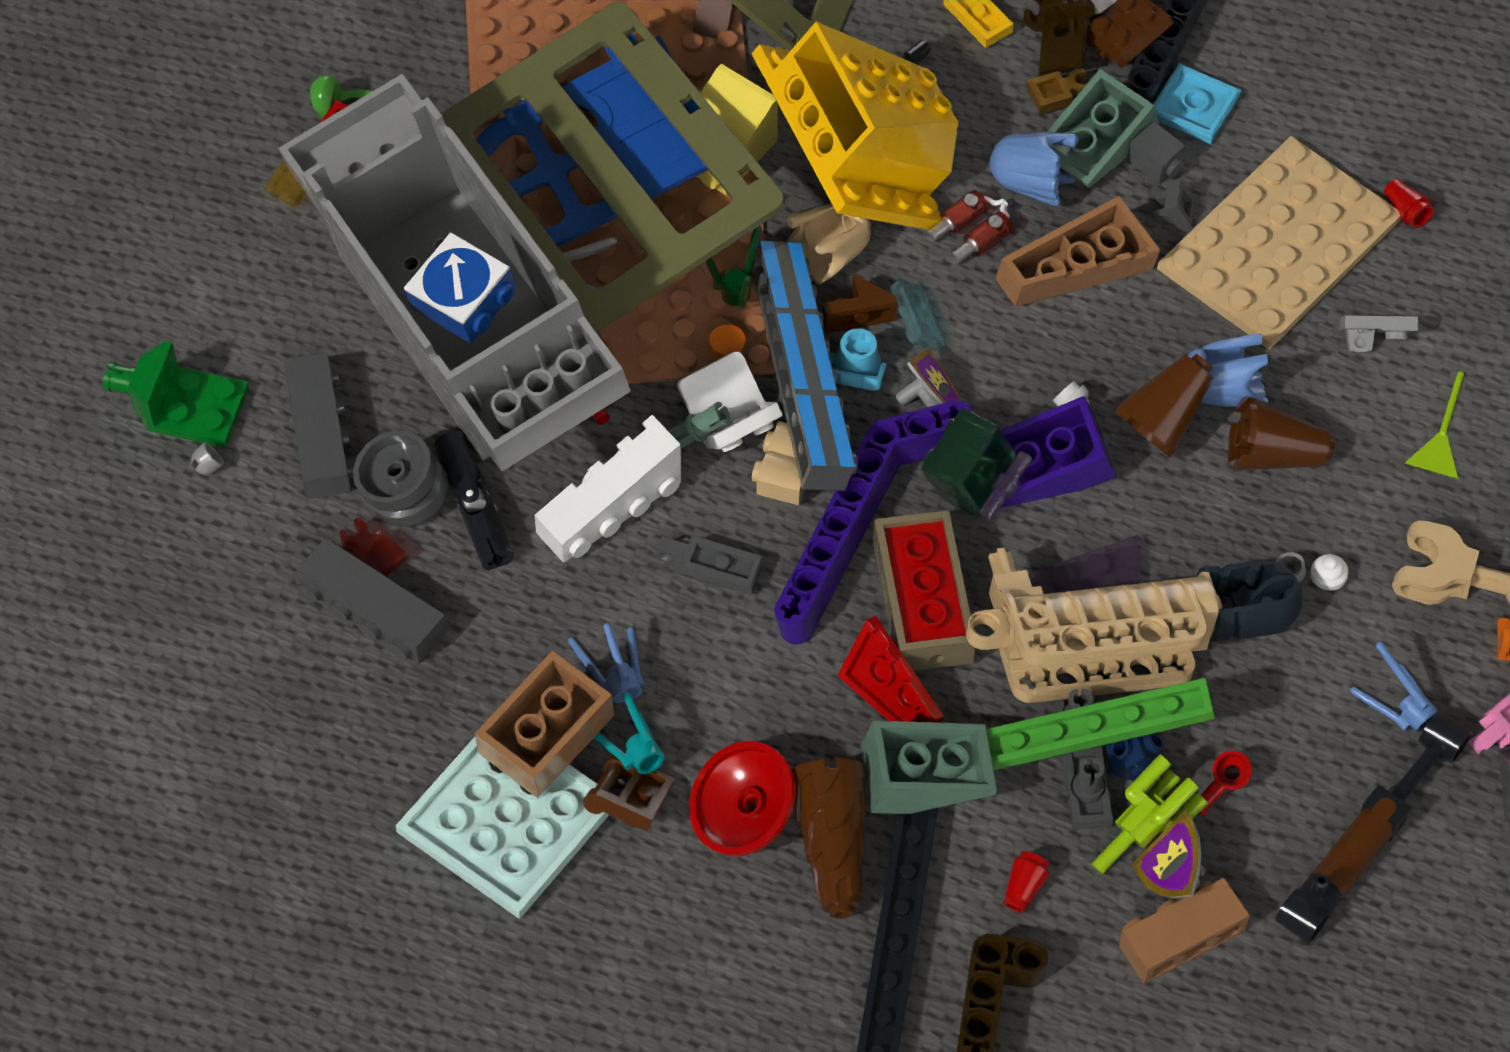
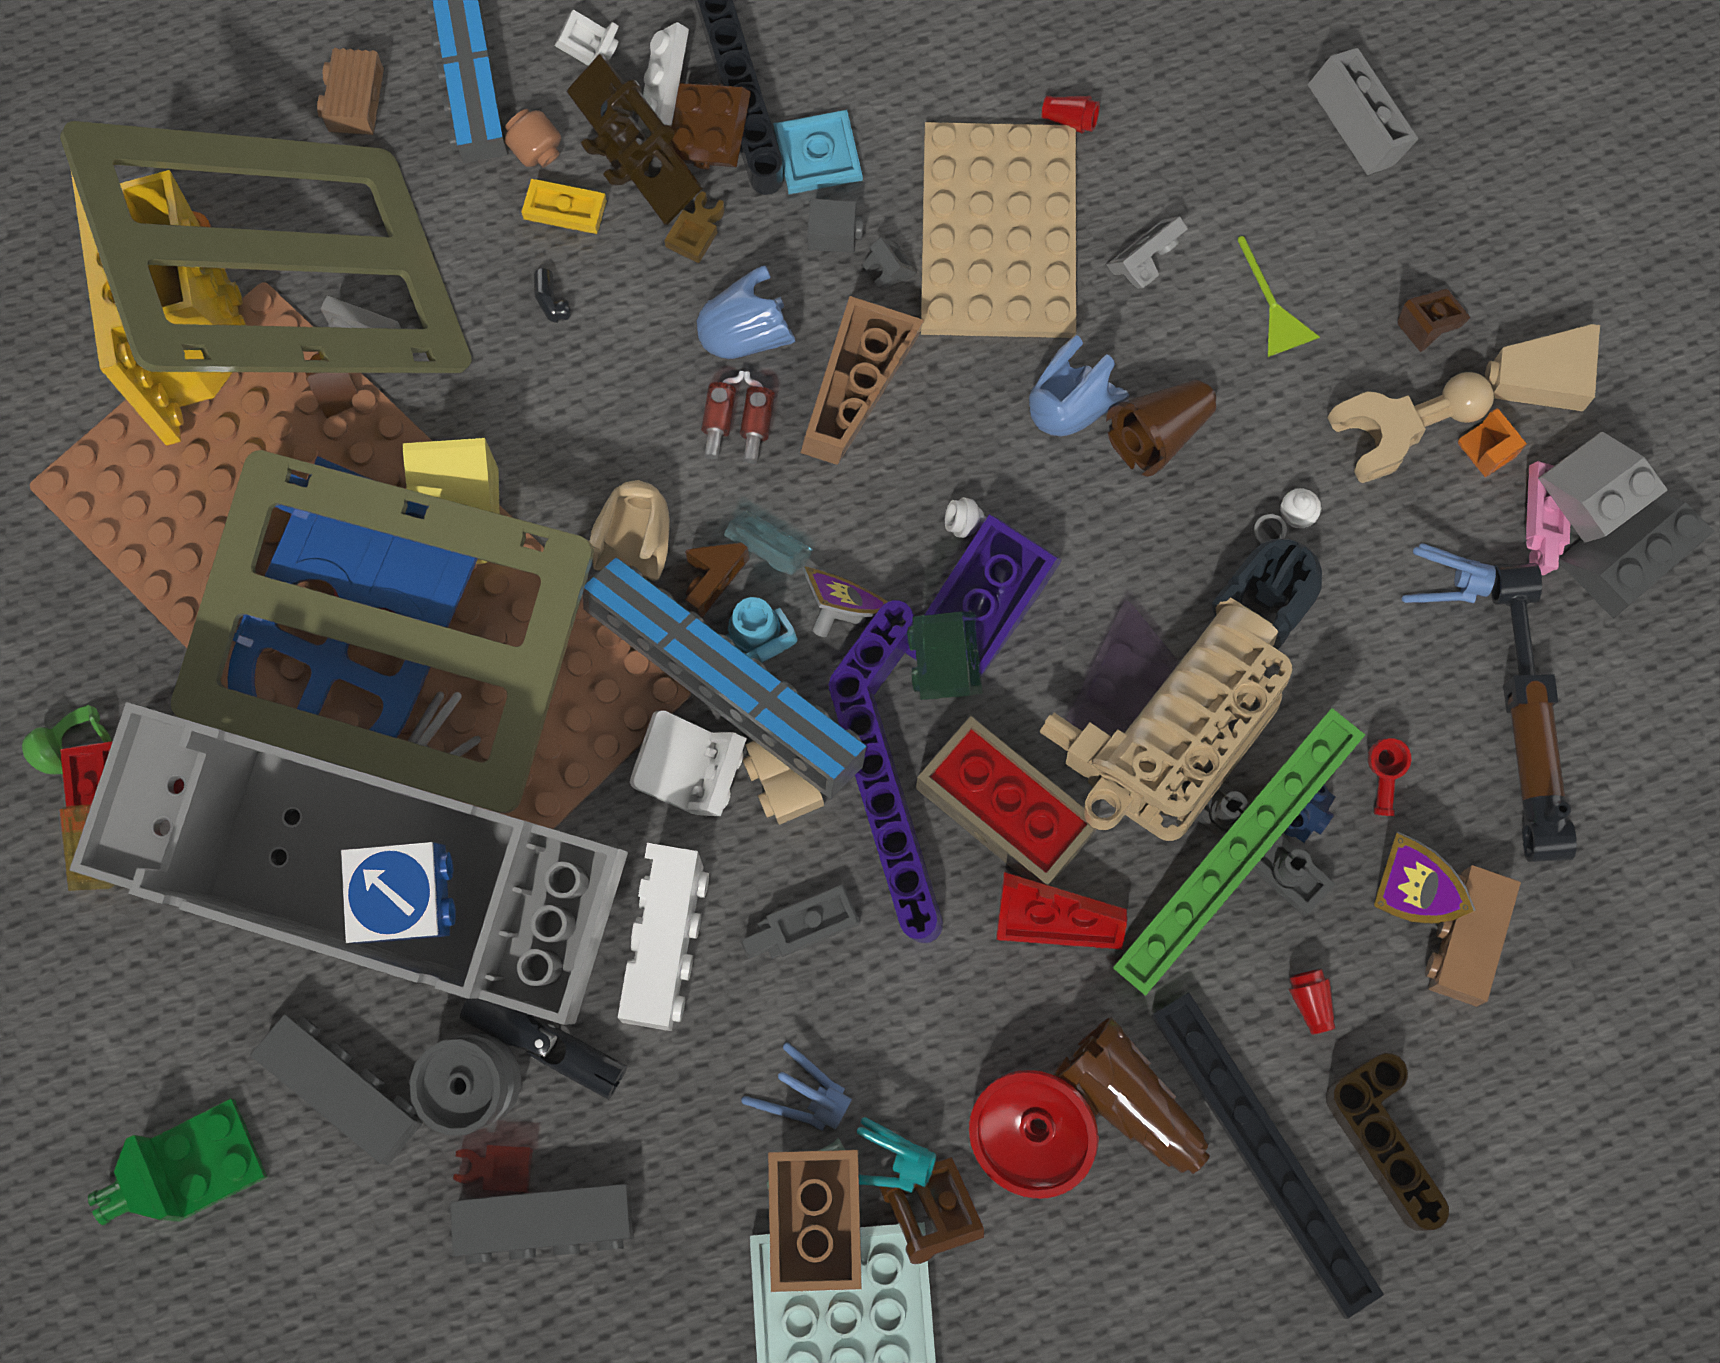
camera: 40 degrees left, 15 degrees up
(206, 459) = (259, 1211): light grey hinge -> none
(699, 425) = (681, 810): sand green axle -> none
(726, 340) = (631, 703): orange tile -> none
(736, 282) = (592, 641): dark green plant -> none
(866, 124) = (579, 400): yellow wedge -> none
(926, 765) = (1160, 972): sand green slope -> none
(1005, 485) = (988, 648): clear purple bar -> none
(1105, 120) = (769, 230): sand green slope -> none
(1148, 812) = (1361, 858): lime plant -> none
(1168, 402) = (1058, 463): reddish brown cone -> none

